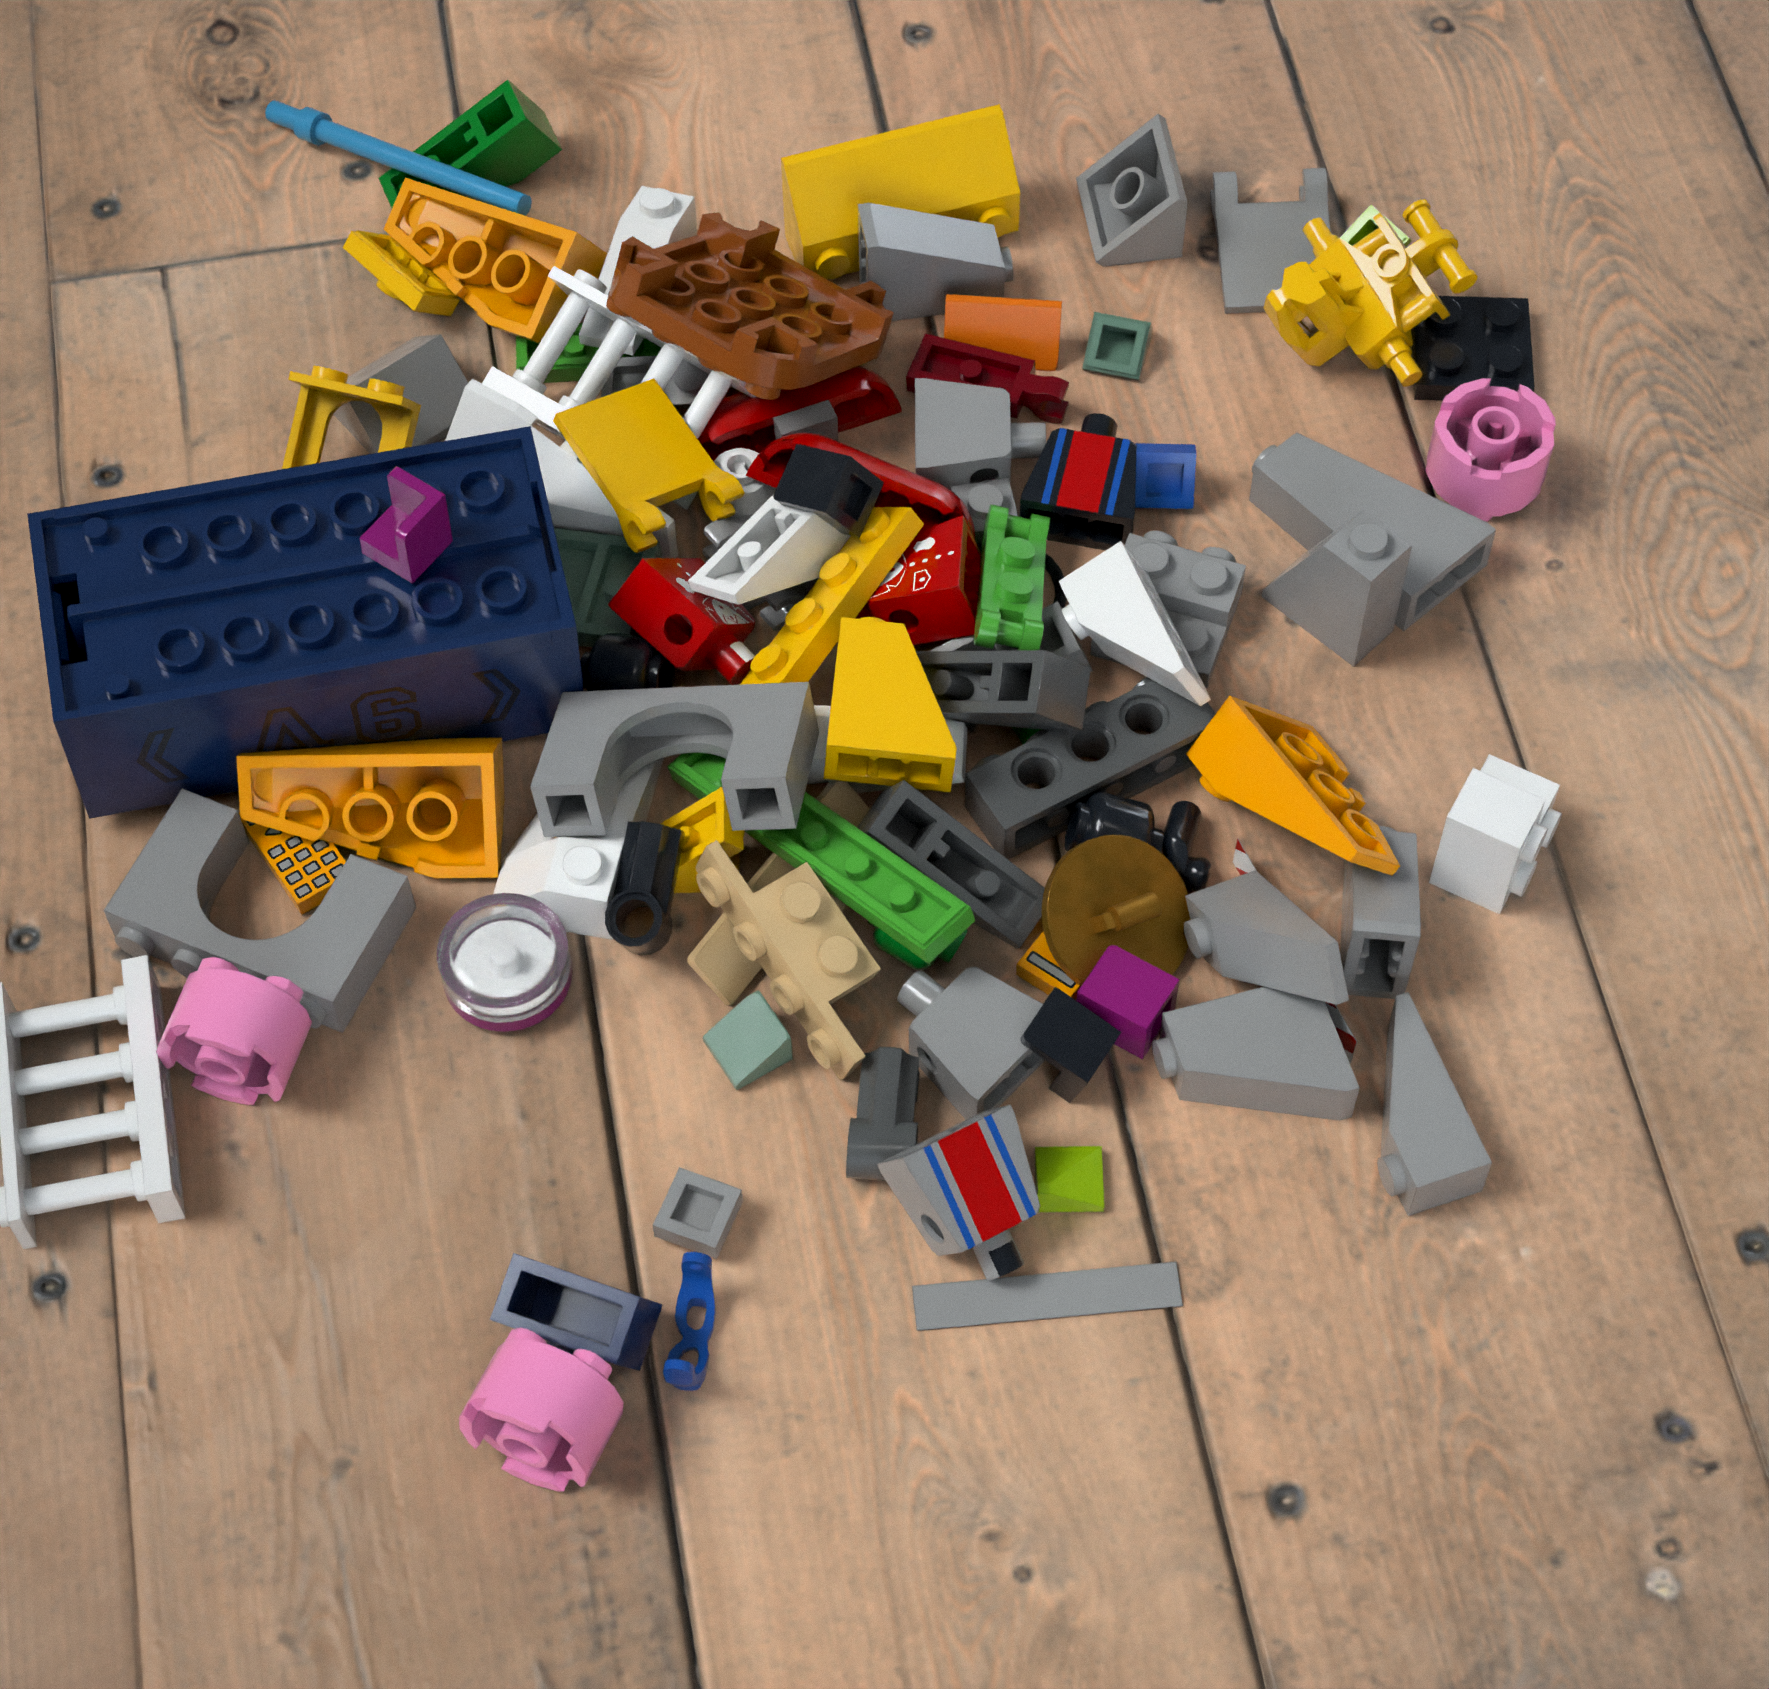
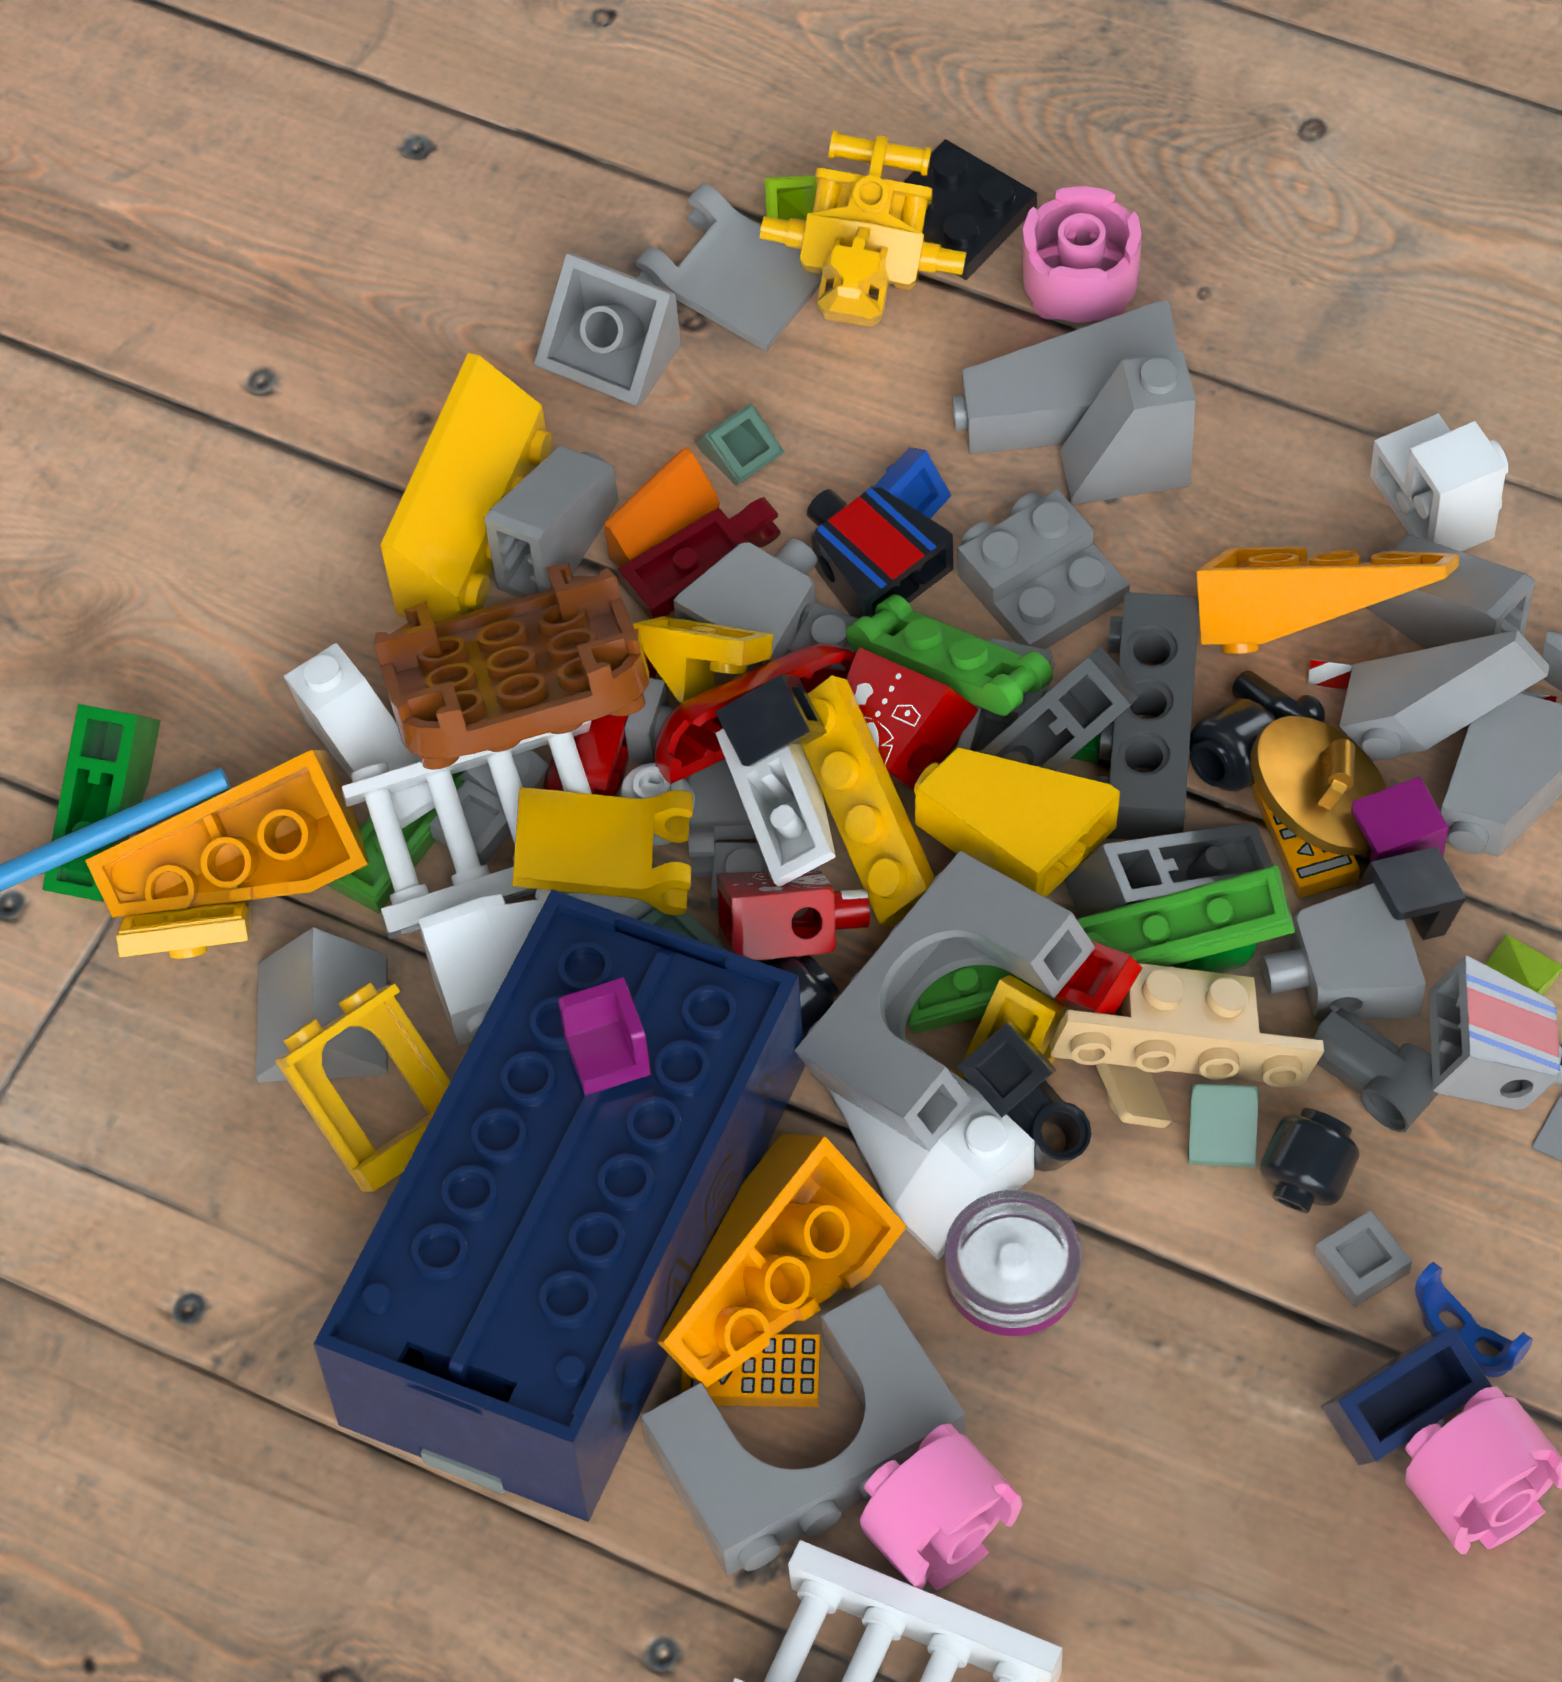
camera: 50 degrees left, 0 degrees up
(649, 837) = (1006, 1068): none -> black panel
(757, 1118) = (1309, 1160): none -> black head
(772, 852) = (1100, 981): none -> red tile
(878, 418) = (692, 651): none -> yellow slope
(1125, 617) = (1063, 597): white slope -> none

